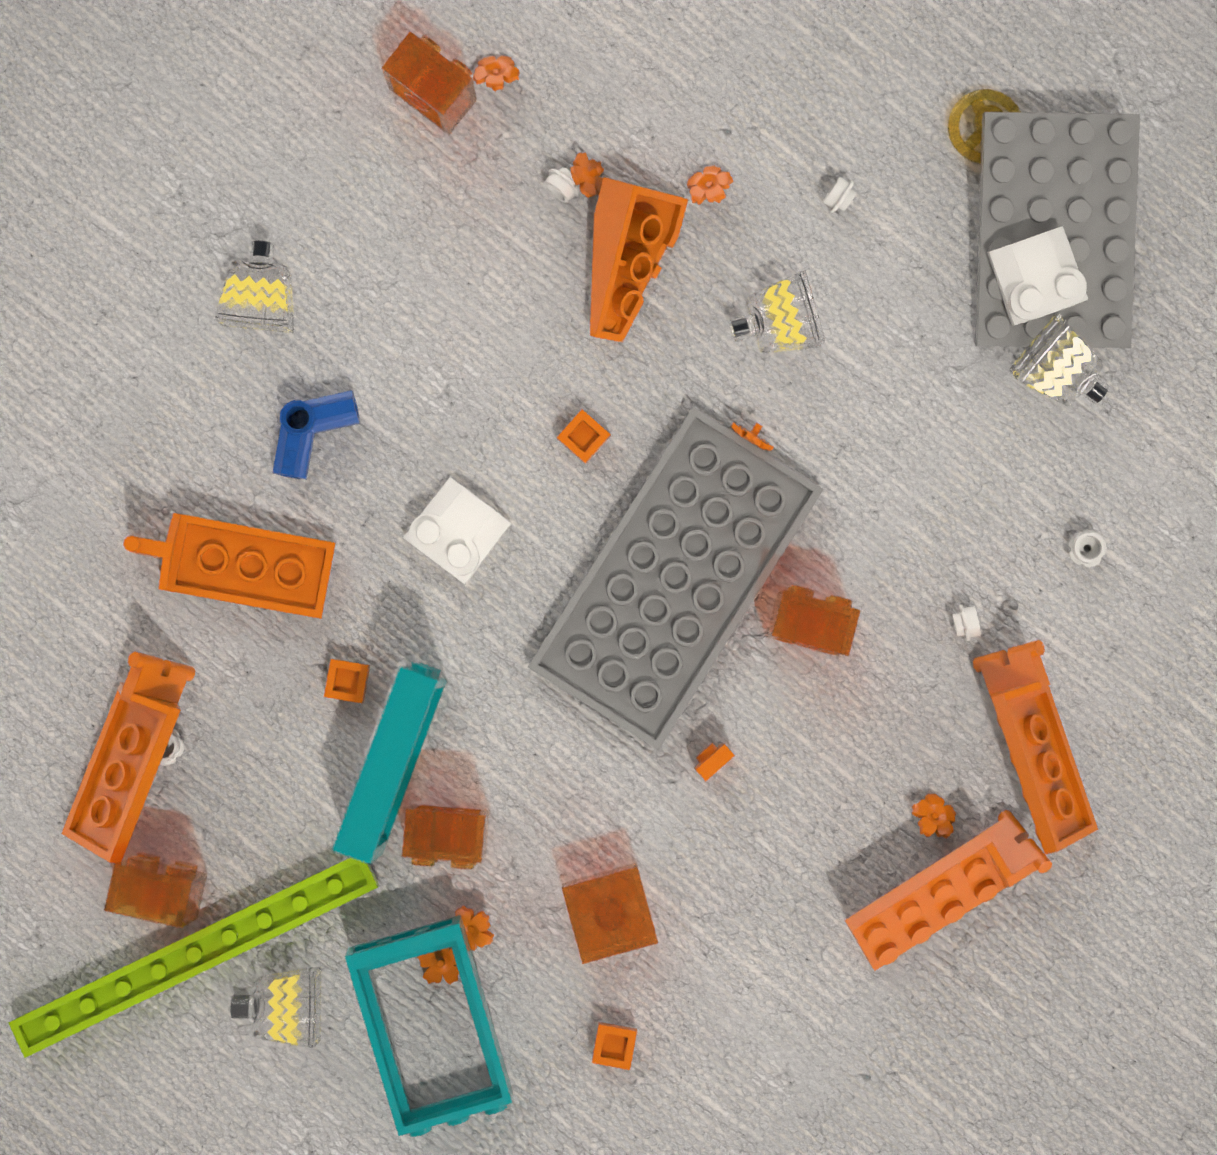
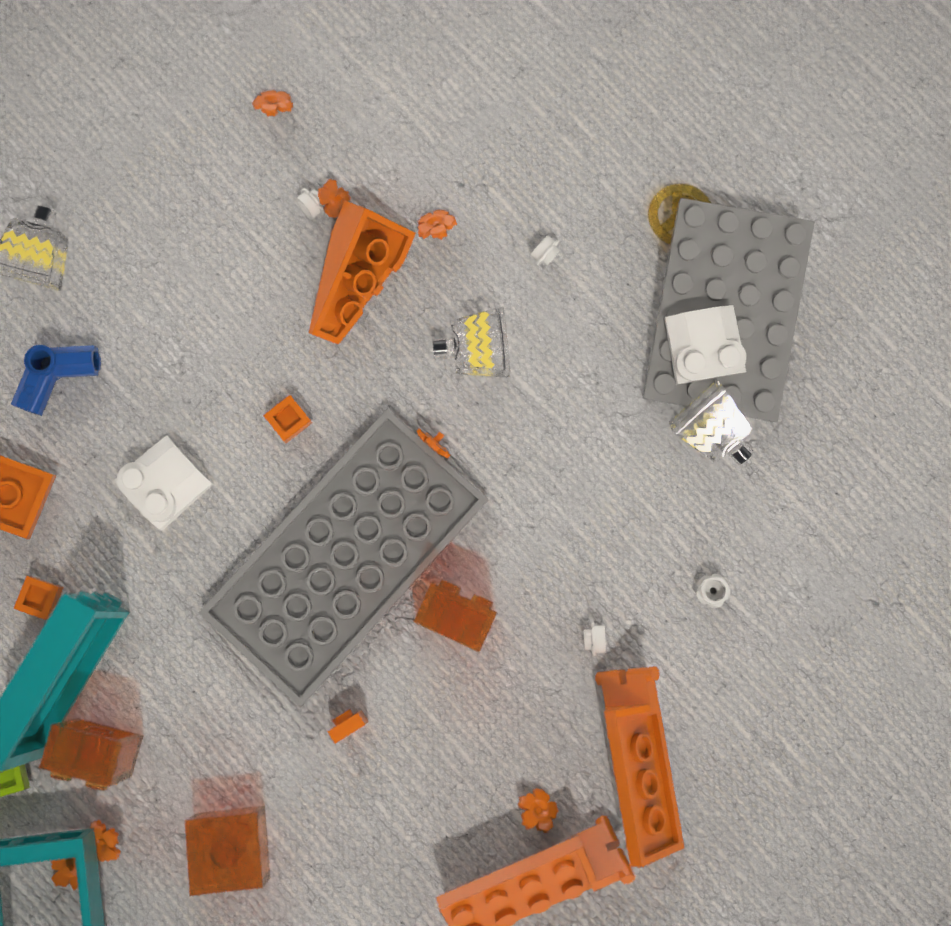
camera: 10 degrees right, 5 degrees down
(430, 81) = (211, 97): clear orange brick -> none

